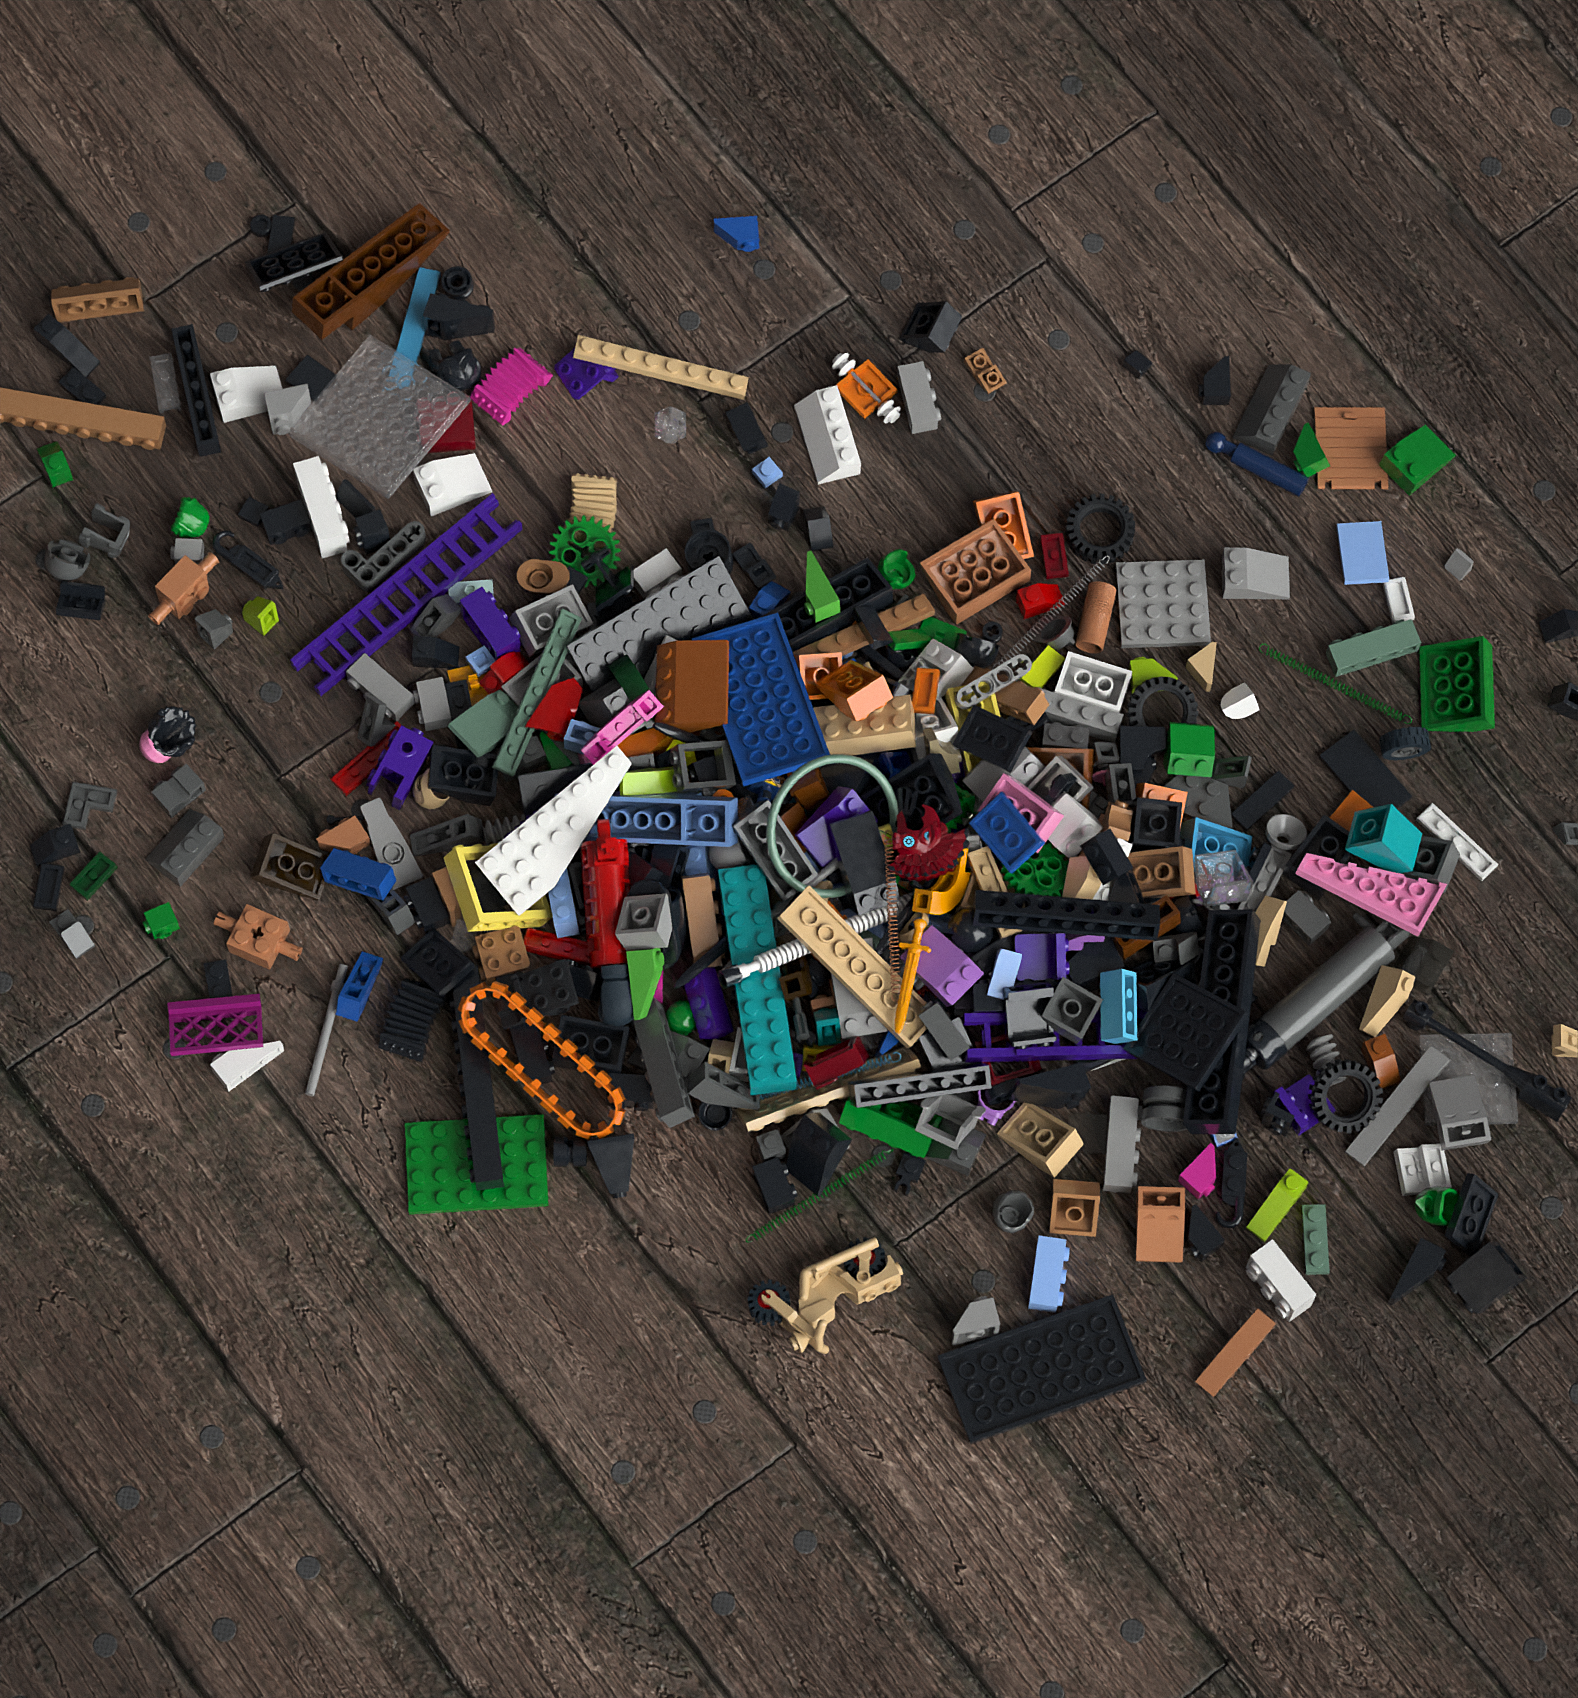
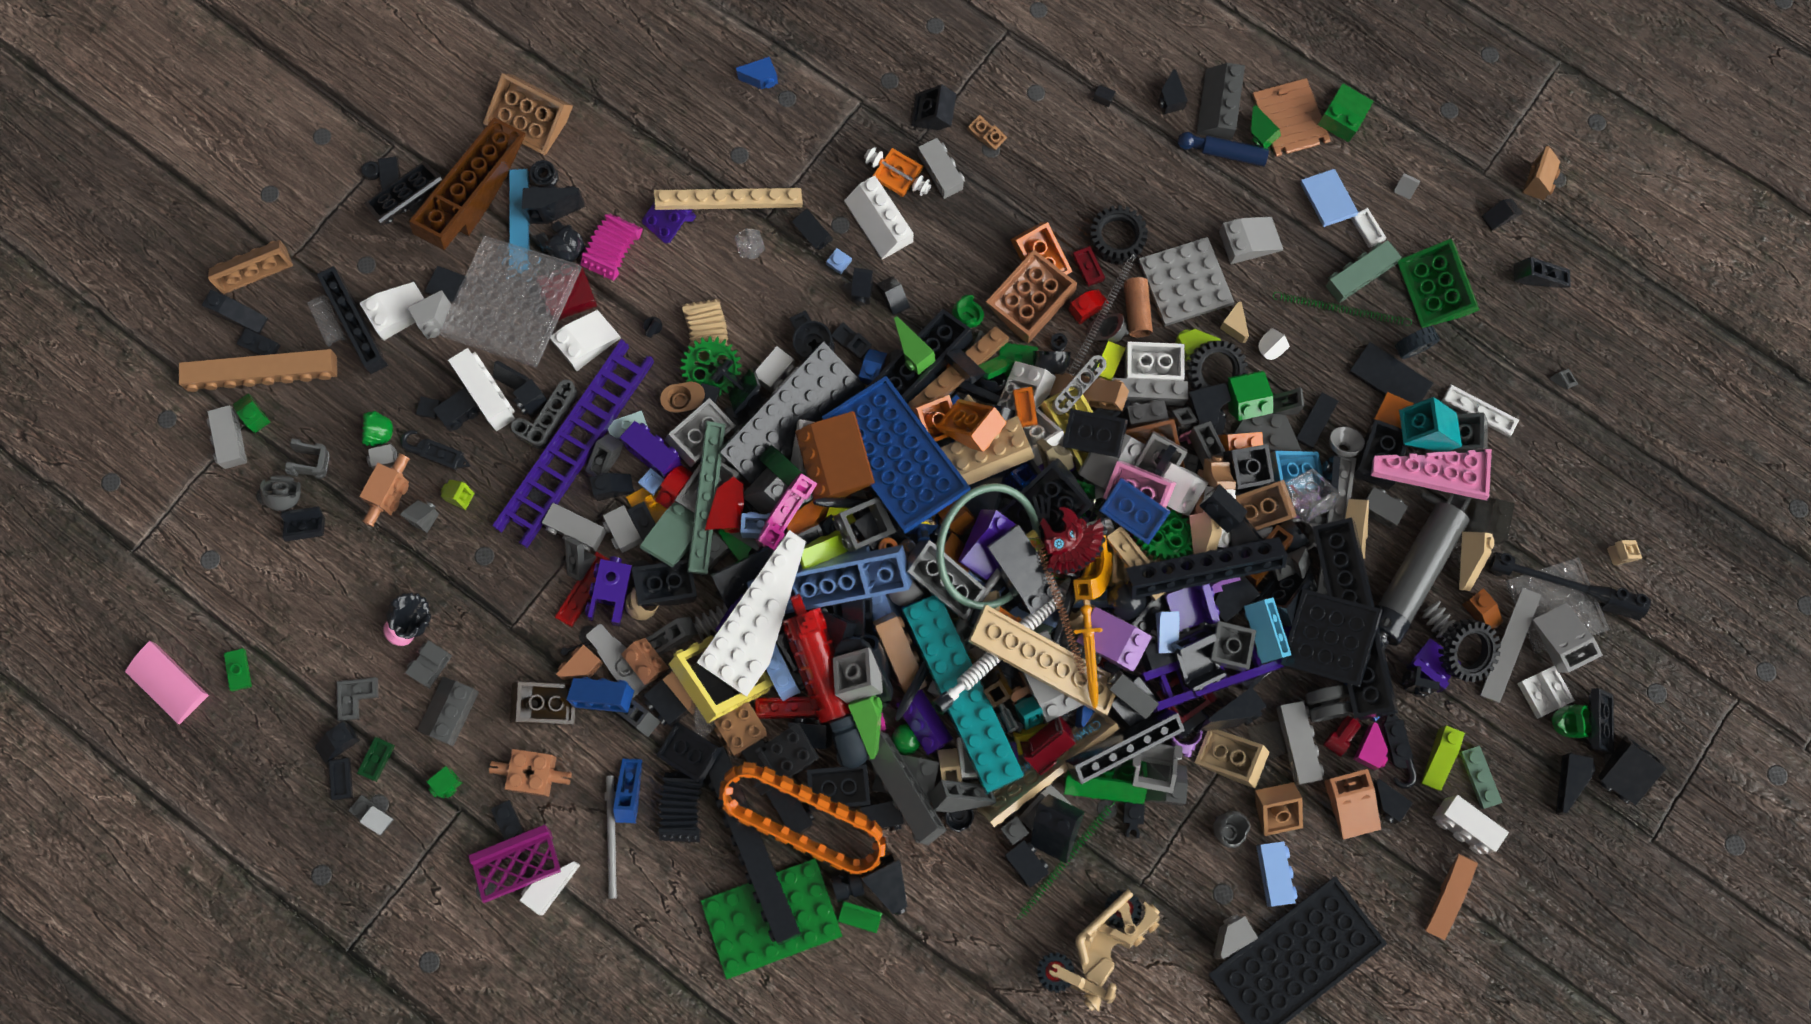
camera: 15 degrees left, 5 degrees up
(21, 482) = (226, 437): none -> light grey brick
(417, 851) = (644, 661): none -> nougat brick
(460, 205) = (530, 111): none -> medium nougat slope
(532, 488) = (652, 326): none -> black plate
(574, 1188) = (860, 917): none -> green panel
(1167, 1154) = (1340, 739): none -> dark red piece

